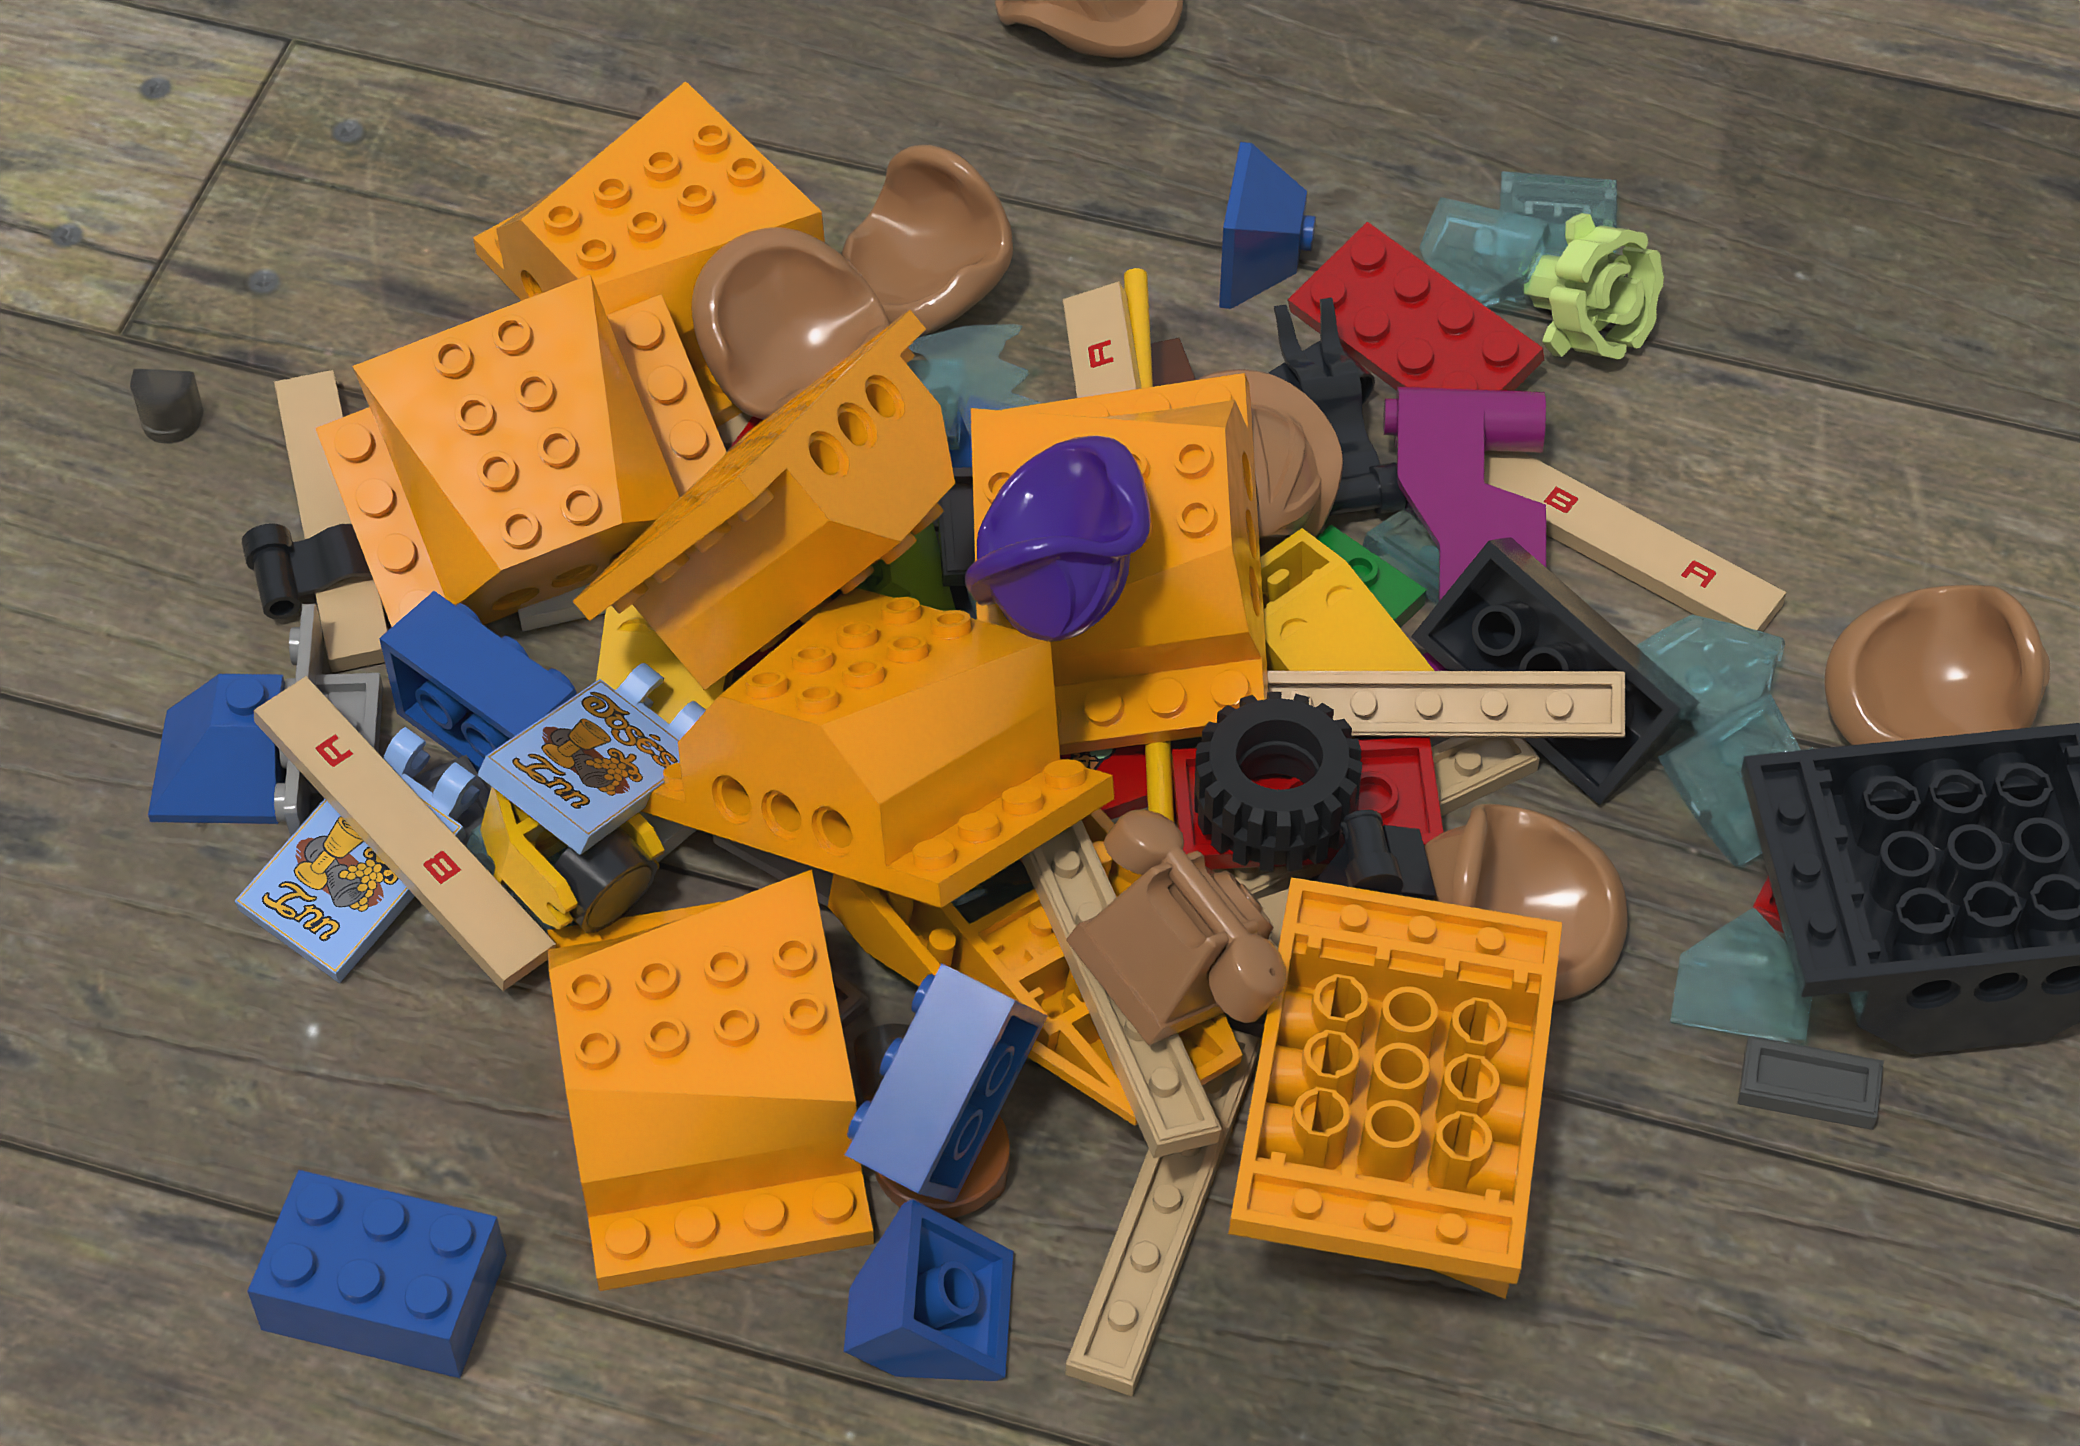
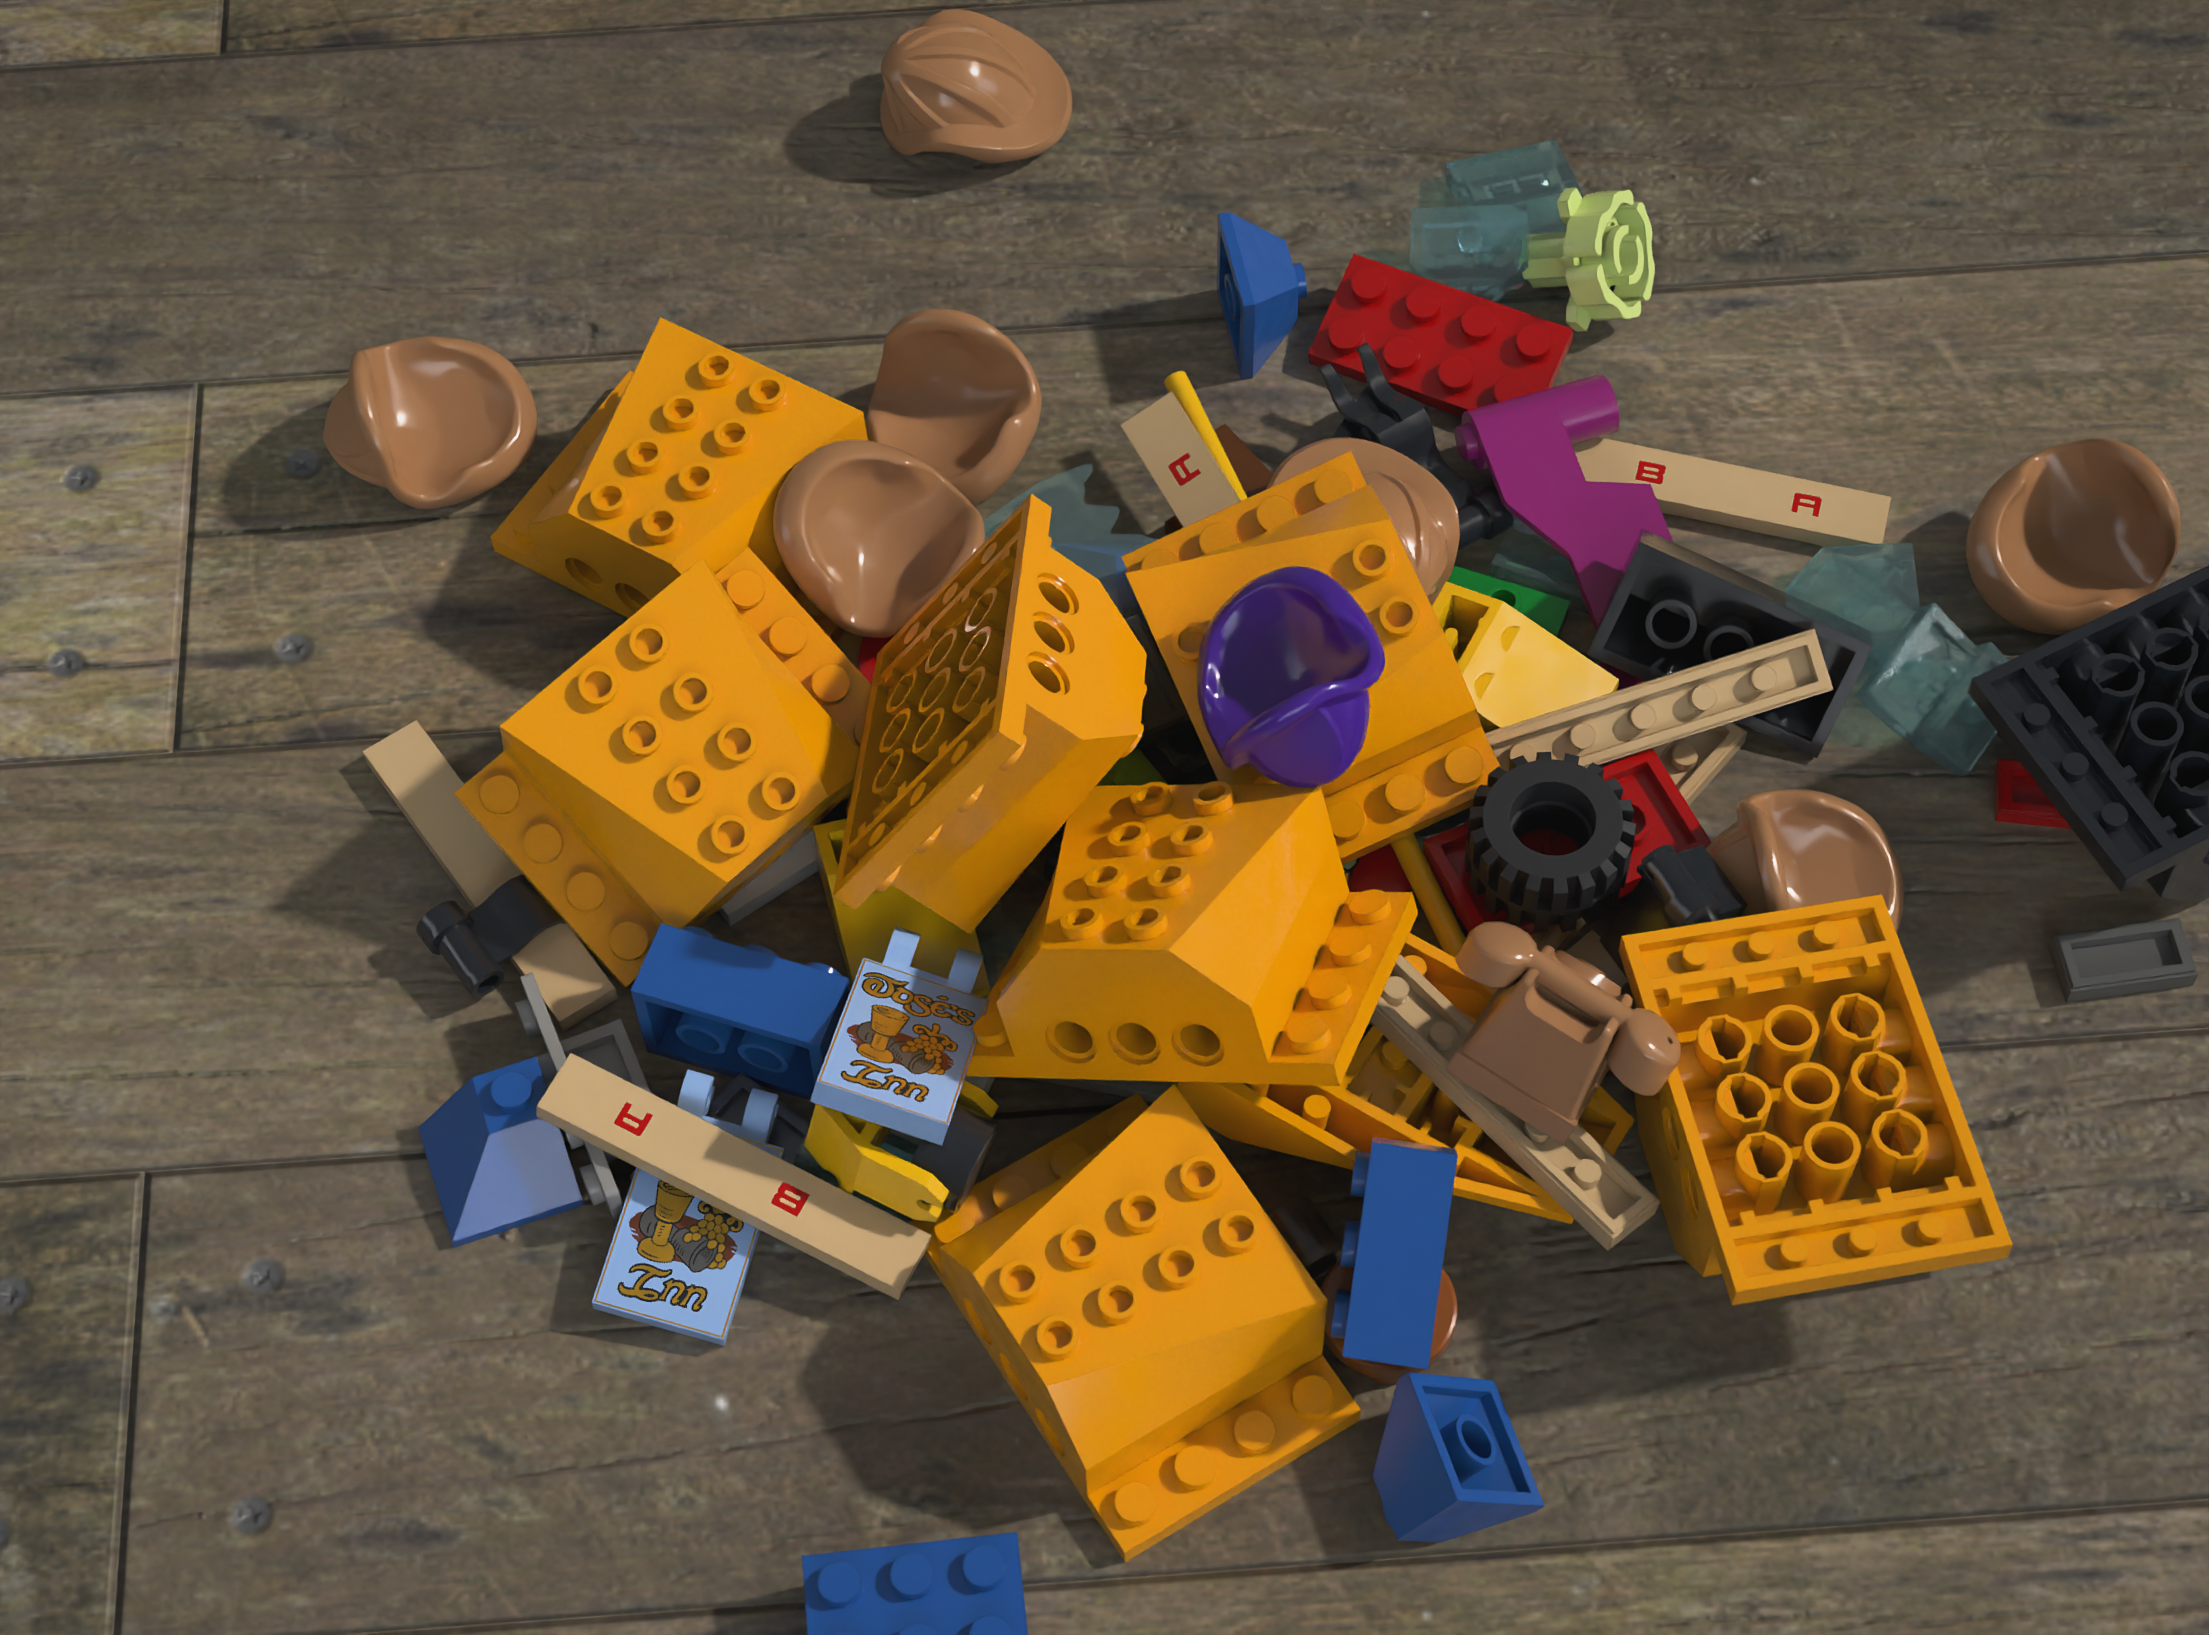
camera: 20 degrees left, 5 degrees up
(167, 404) = (265, 810): clear smoke brick -> none
(465, 120) = (432, 420): none -> medium nougat piece
(1153, 1244) = (1619, 1350): tan tile -> none
(1741, 983) = (2026, 886): clear light blue slope -> none

